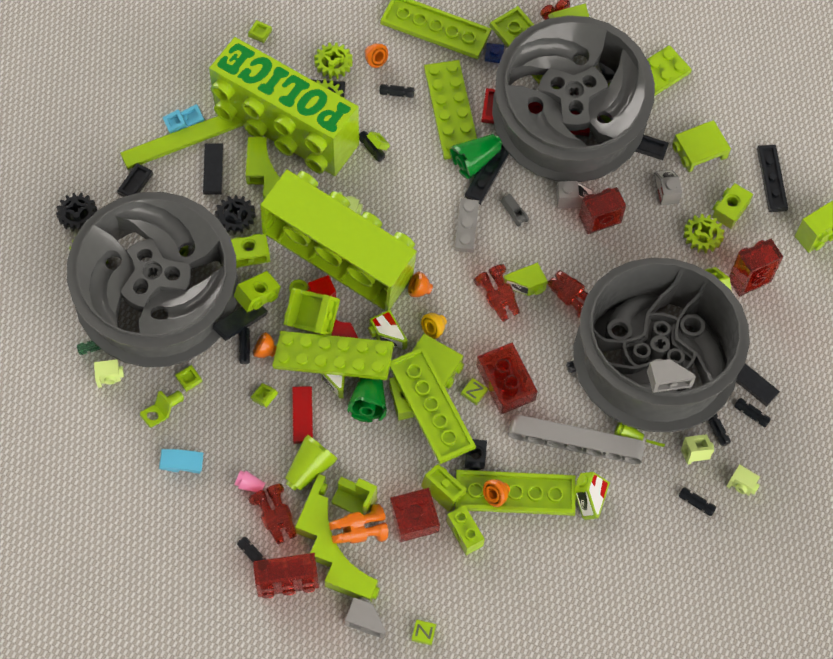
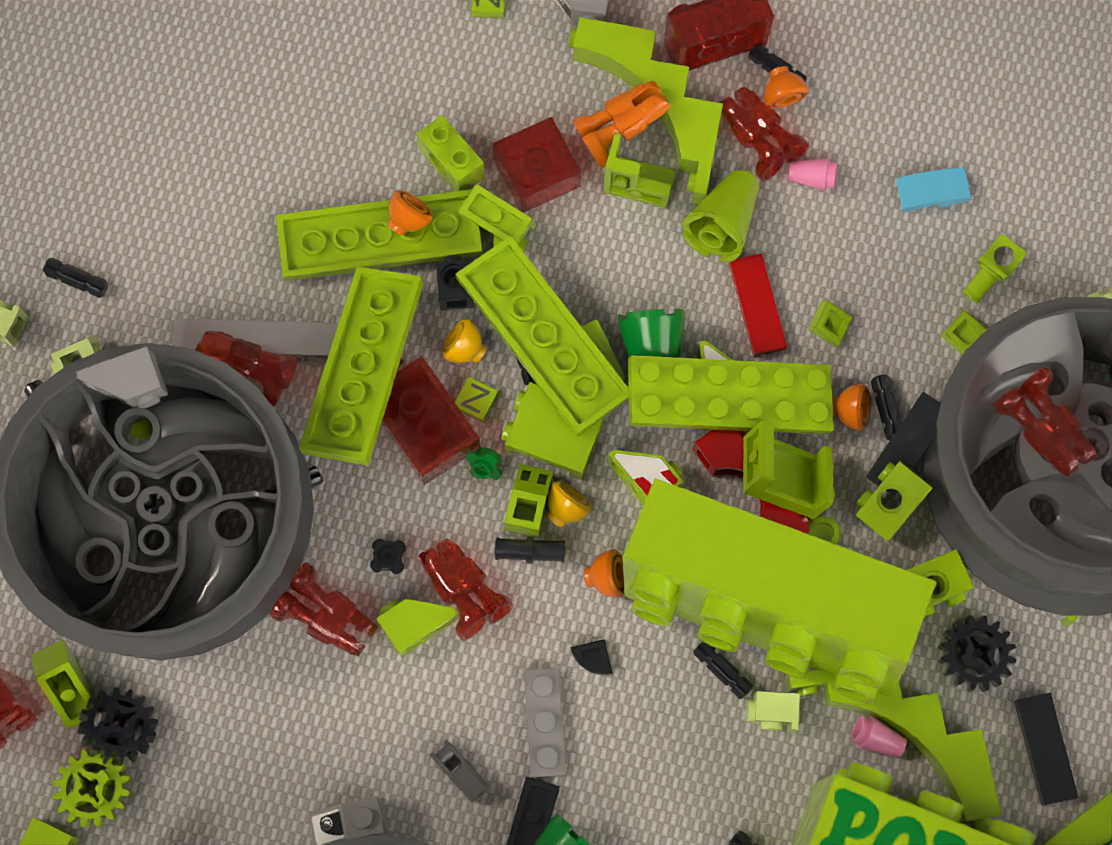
camera: 170 degrees right, 10 degrees up
(176, 266) = (1054, 431): none -> clear red piece
(254, 533) = (784, 88): none -> orange brick
(435, 251) = (593, 657): none -> black tile
(455, 327) = (528, 501): none -> lime slope
(458, 306) = (530, 550): none -> black pin
(474, 352) = (484, 463): none -> green plate
(477, 419) = (463, 343): none -> yellow brick
(536, 404) = (361, 366): none -> lime plate
(541, 315) = (382, 548): none -> black plate
(585, 416) = (248, 359): none -> clear red piece
(590, 494) = (252, 249): slope -> none
(602, 210) = (290, 789): clear red brick -> none
(695, 253) = (113, 740): none -> black gear

